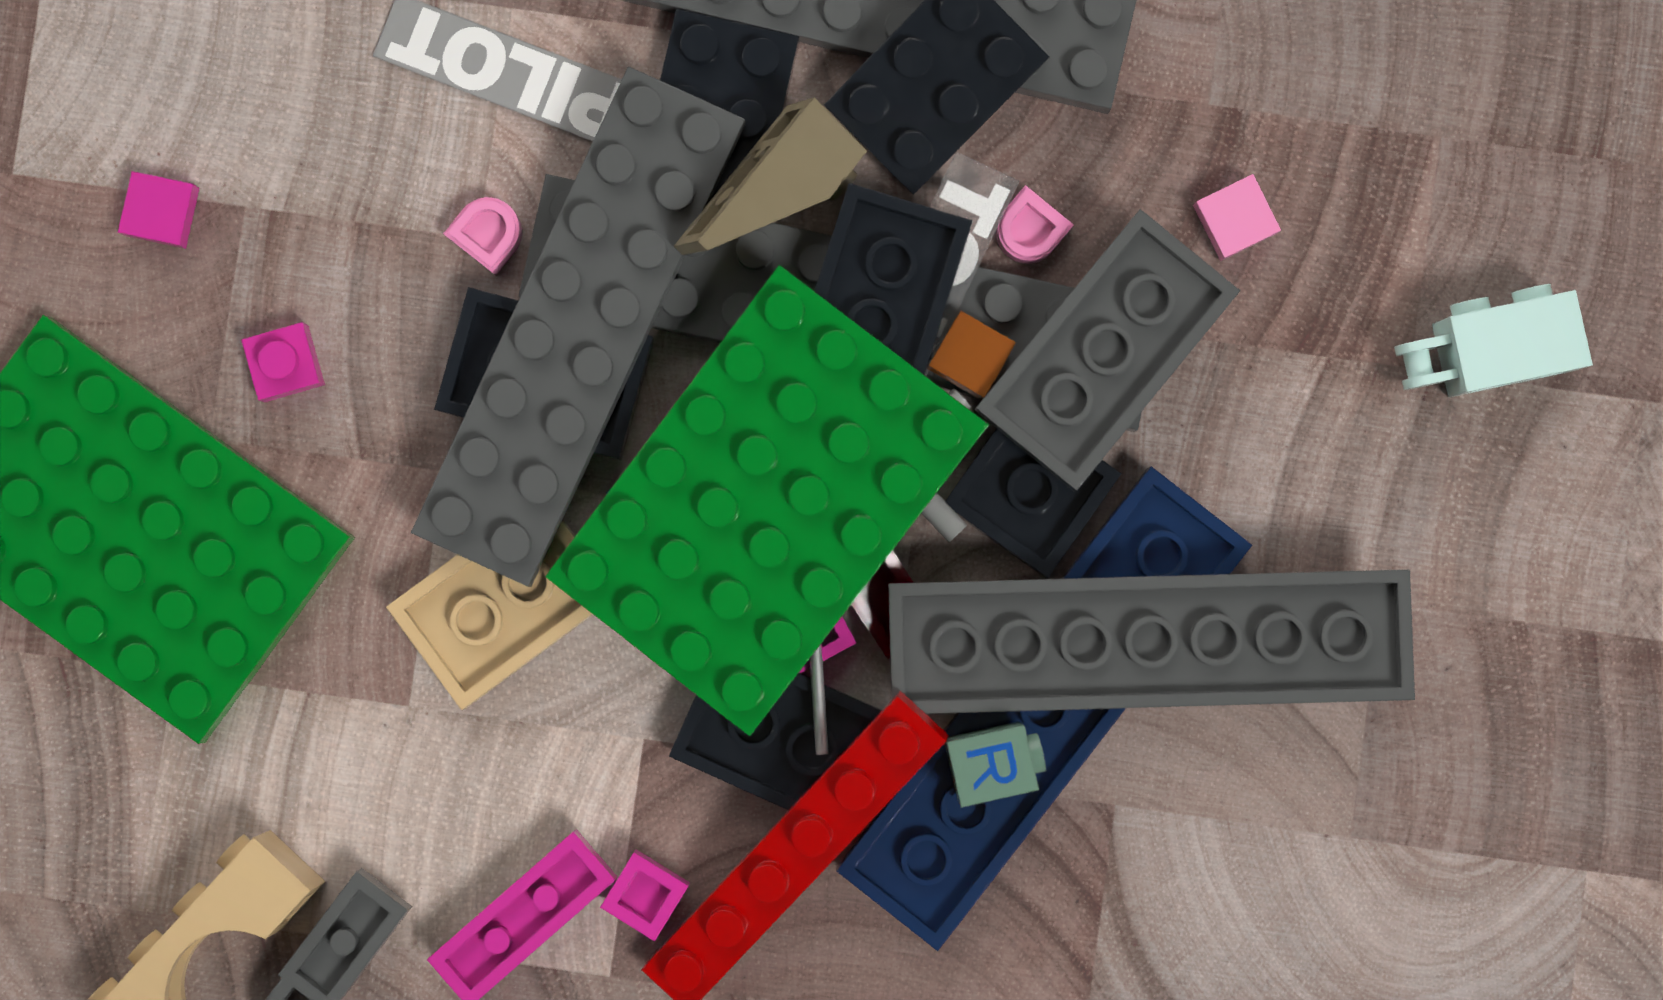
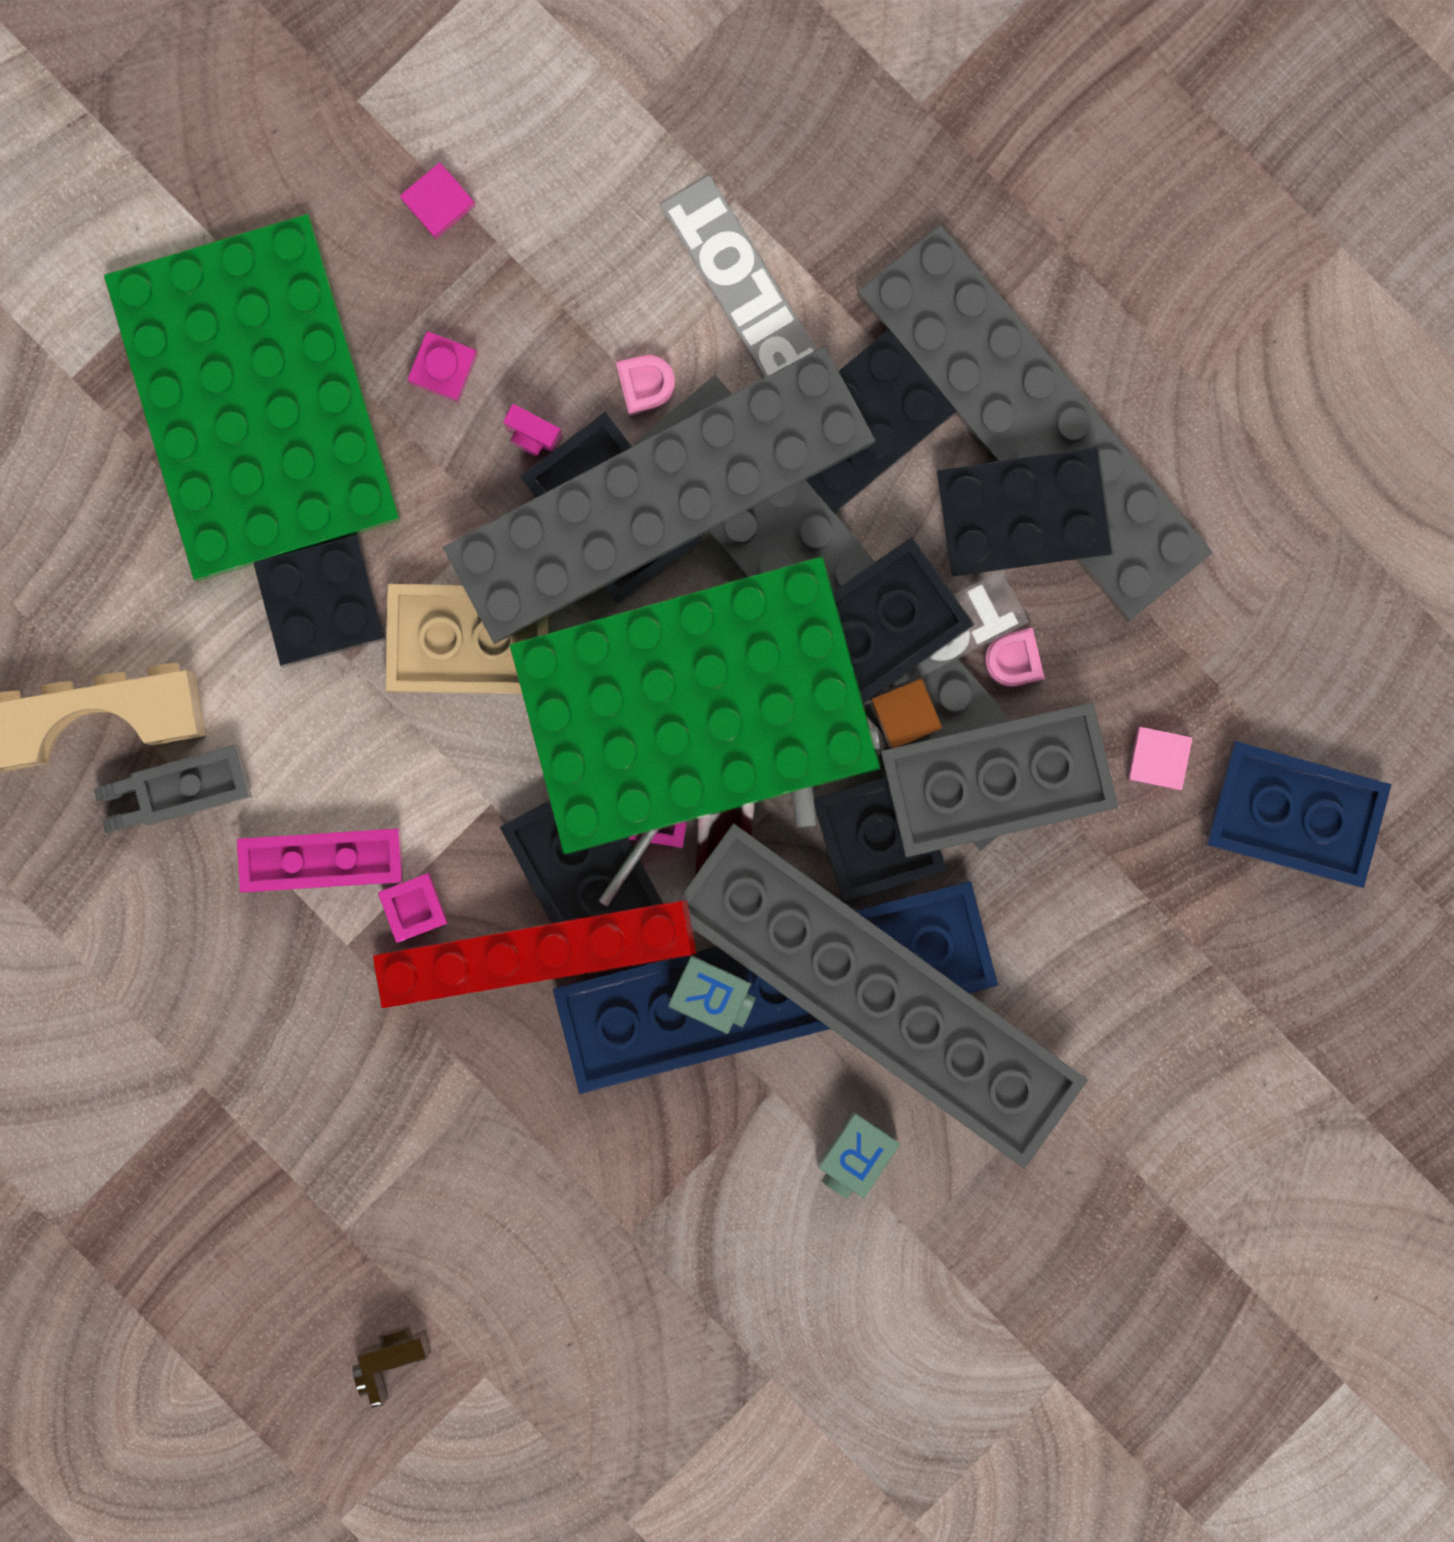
camera: 40 degrees right, 0 degrees up
(334, 672) = (319, 601): none -> black plate
(412, 359) = (531, 431): none -> dark pink plate
(791, 168) = (879, 497): dark tan slope -> none
(1243, 807) = (856, 1156): none -> sand green brick
(1406, 170) = (1298, 814): none -> dark blue plate
(1501, 344) = (1270, 979): light aqua brick -> none

